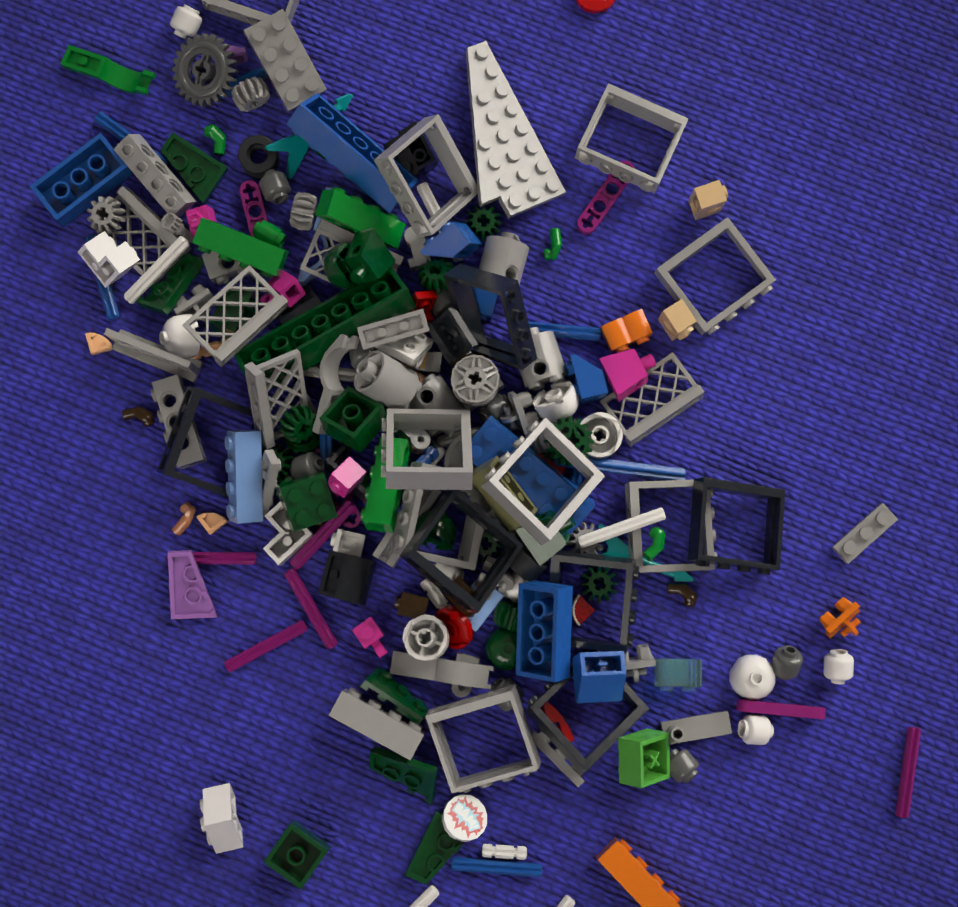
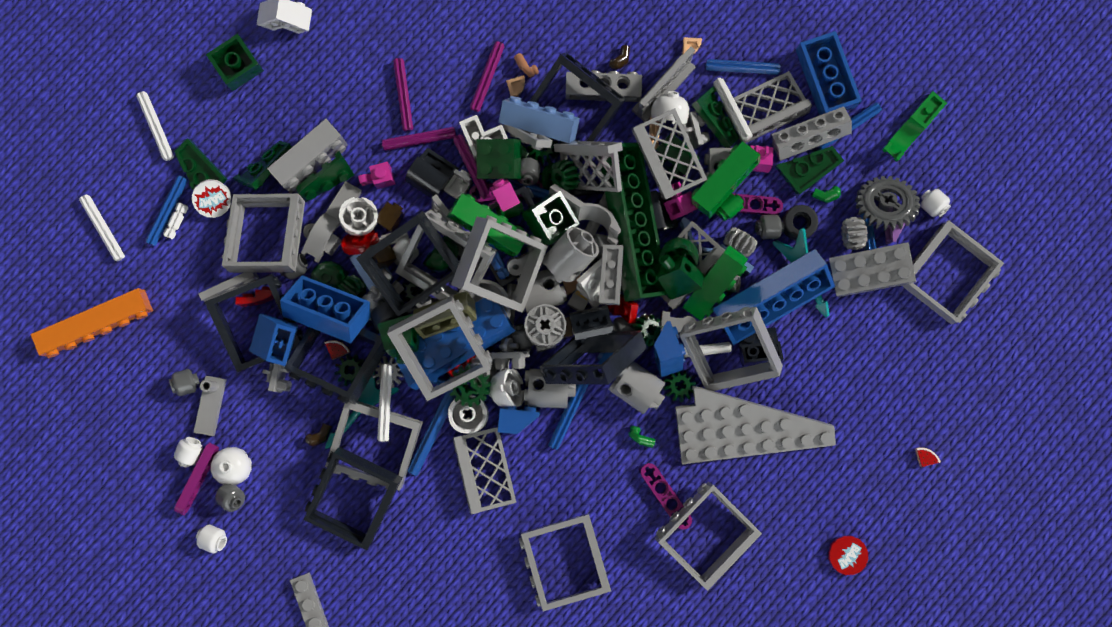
camera: 115 degrees right, 0 degrees up
(106, 206) = (798, 83): light grey gear -> none
(106, 259) = (754, 73): white brick -> none
(174, 225) = (764, 134): light grey piece -> none
(187, 588) = (469, 49): medium lavender wing -> none
(626, 331) = (547, 470): orange brick -> none
(626, 371) = (512, 457): dark pink torso -> none
(644, 758) = (199, 353): bright green brick -> none
(657, 545) = (366, 430): green arm -> none
(677, 320) = (538, 515): tan brick -> none
(678, 673) = (256, 406): clear light blue brick -> none
(708, 199) = (631, 580): tan brick -> none
(848, 612) = (251, 564): orange hips -> none
(908, 772) = (108, 563): magenta axle -> none

